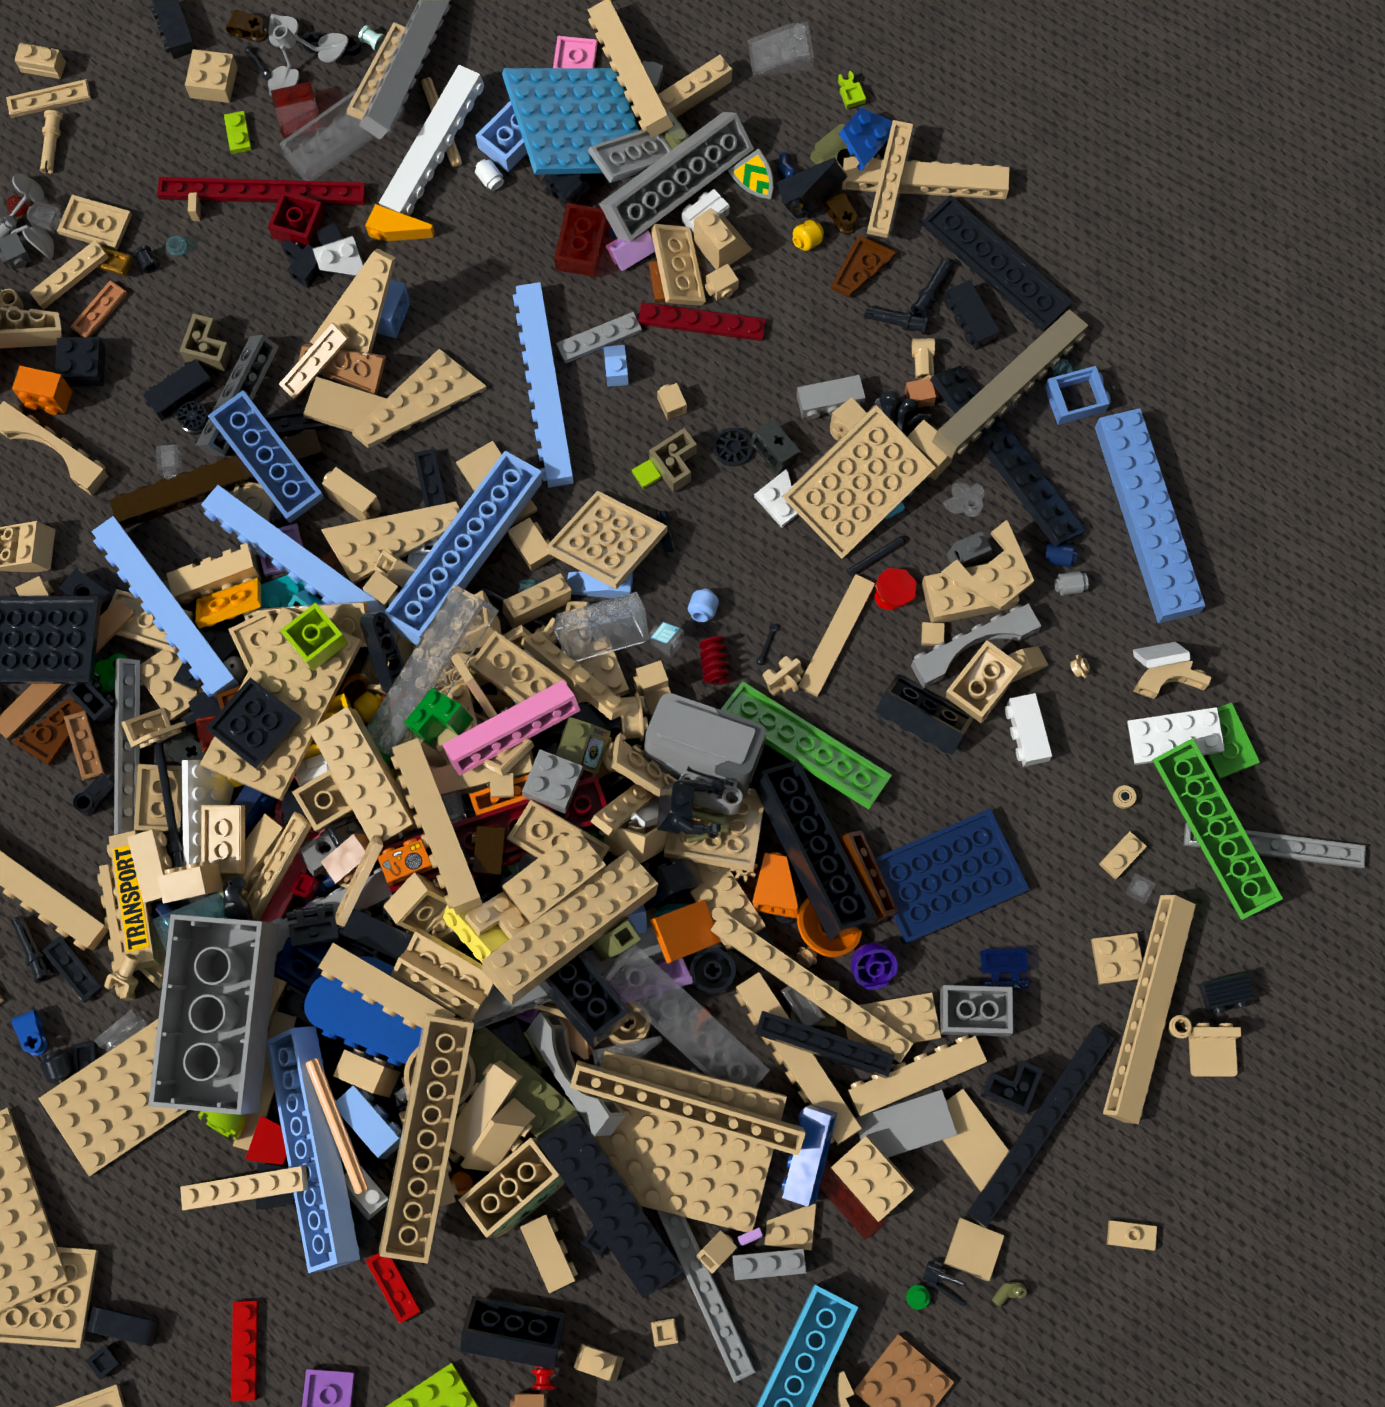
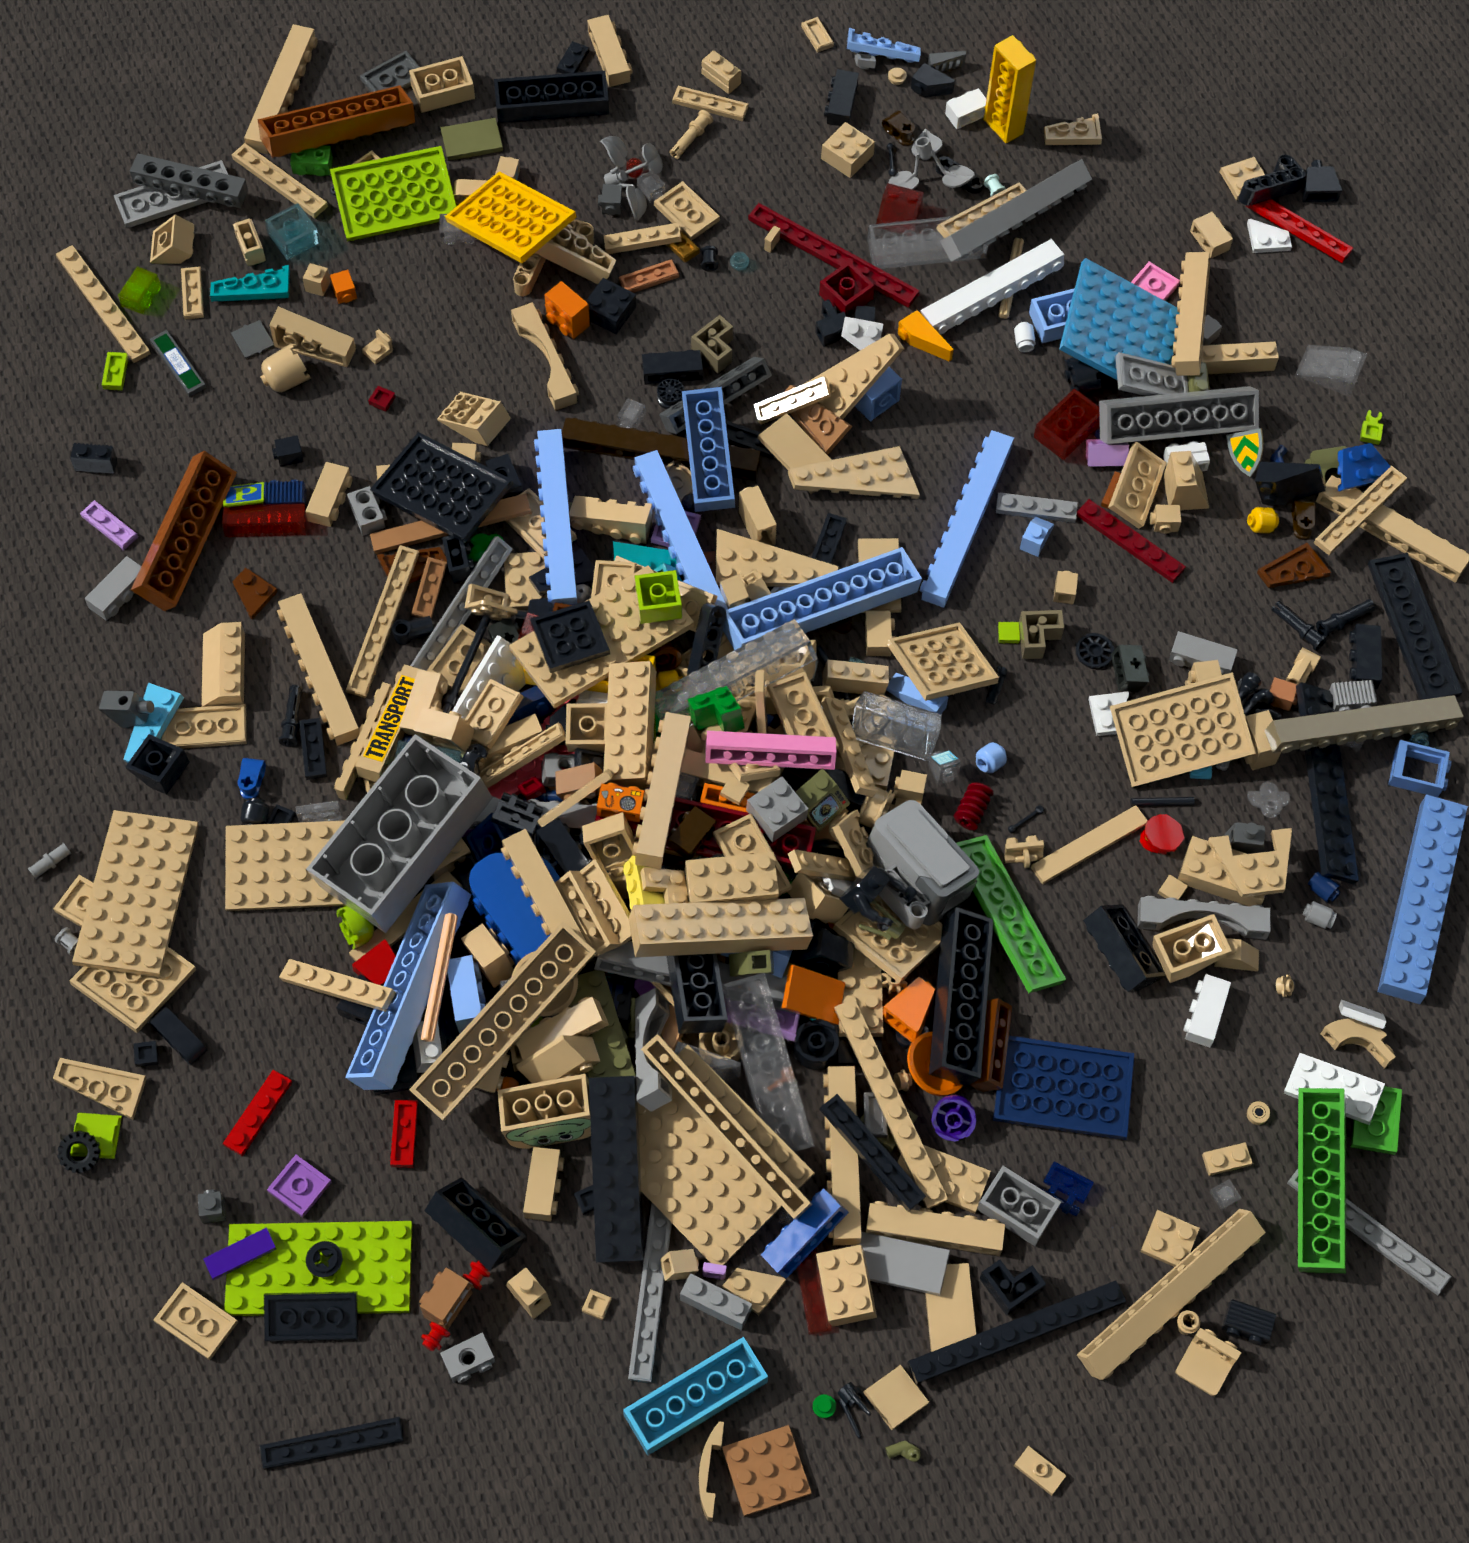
camera: 30 degrees right, 10 degrees down
(60, 804) = (382, 621): none -> tan tile
(125, 975) = (350, 772): tan piece -> none
(228, 603) = (608, 543): light orange plate -> none
(237, 132) = (842, 202): lime plate -> none
(983, 360) = (1353, 695): none -> light grey brick

